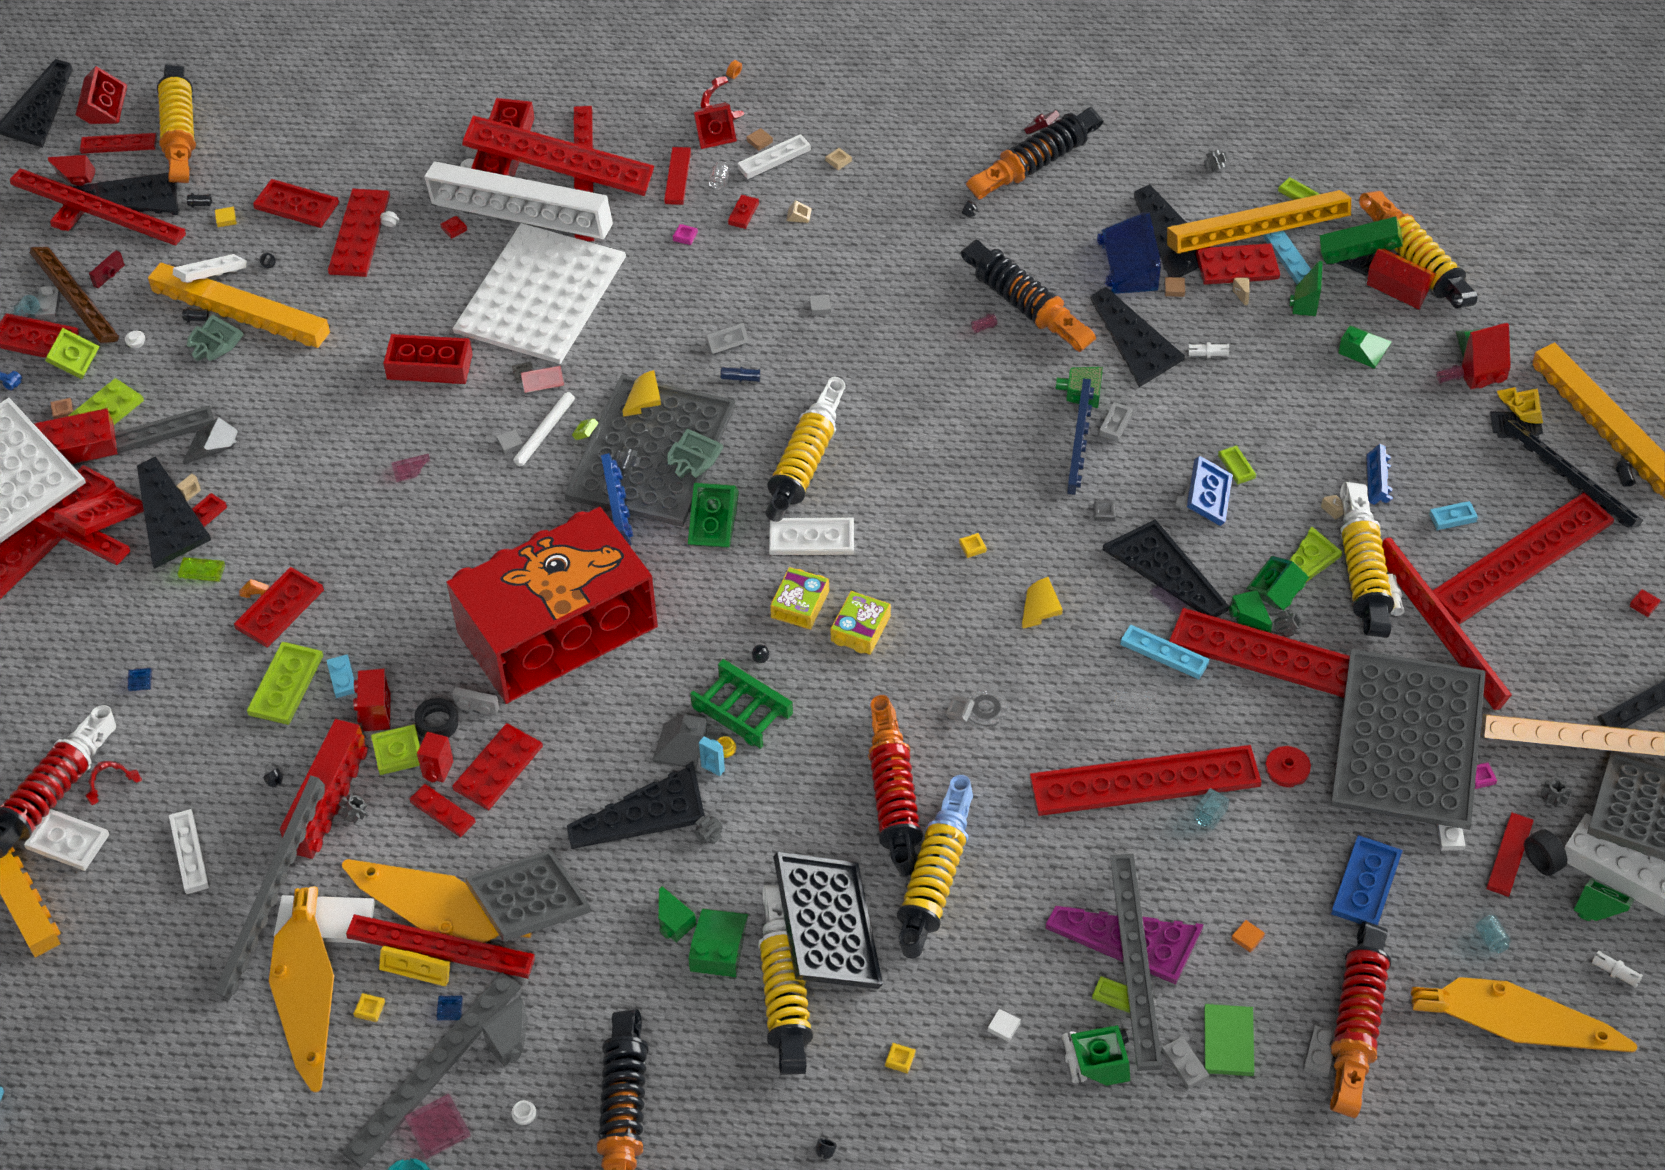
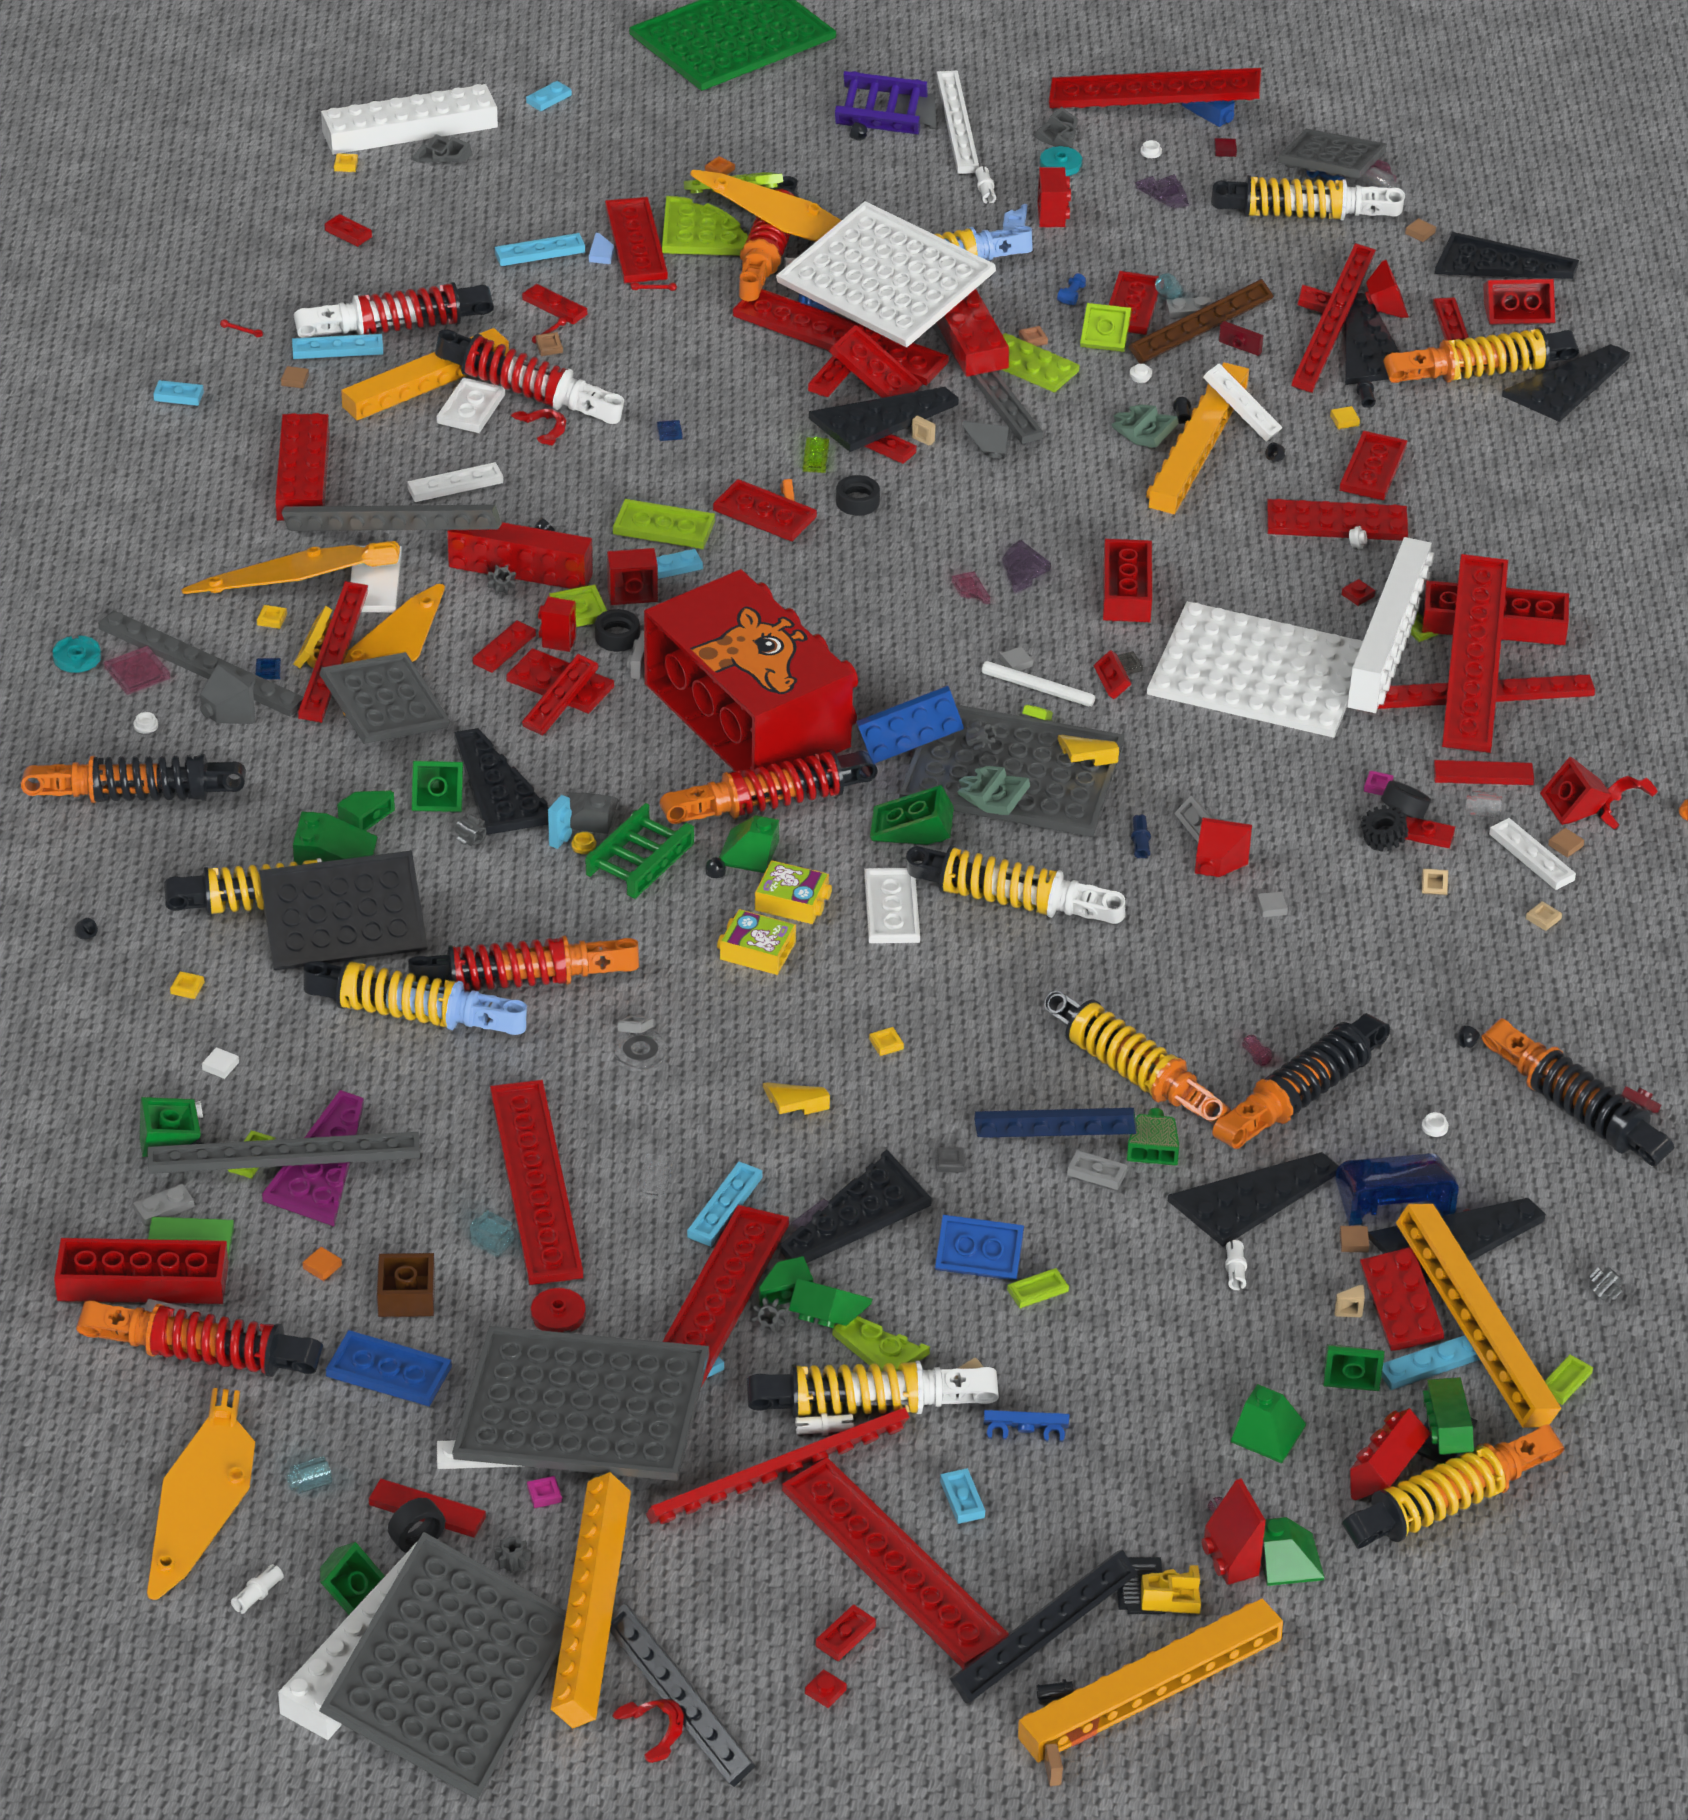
camera: 85 degrees right, 10 degrees down
(142, 982) = (302, 461): none -> red brick
(212, 86) = (1566, 386): none -> black wing
(277, 549) = (856, 484): none -> black tyre
(389, 429) = (1023, 565): none -> clear purple slope
(528, 760) = (560, 694): none -> red tile
(643, 857) = (437, 786): none -> green slope
(674, 605) = (742, 791): none -> piece
(717, 214) = (1408, 799): none -> black tyre
(736, 626) = (751, 844): none -> green slope
(745, 221) = (1381, 818): none -> black tyre
(769, 324) = (1222, 847): none -> red slope
(1003, 387) = (1133, 1055): none -> piece
(1059, 234) = (1435, 1124): none -> white plate
(1281, 866) = (406, 1284): none -> reddish brown brick
(1282, 1069) = (141, 1270): none -> red brick
(1594, 588) = (845, 1632): none -> red plate

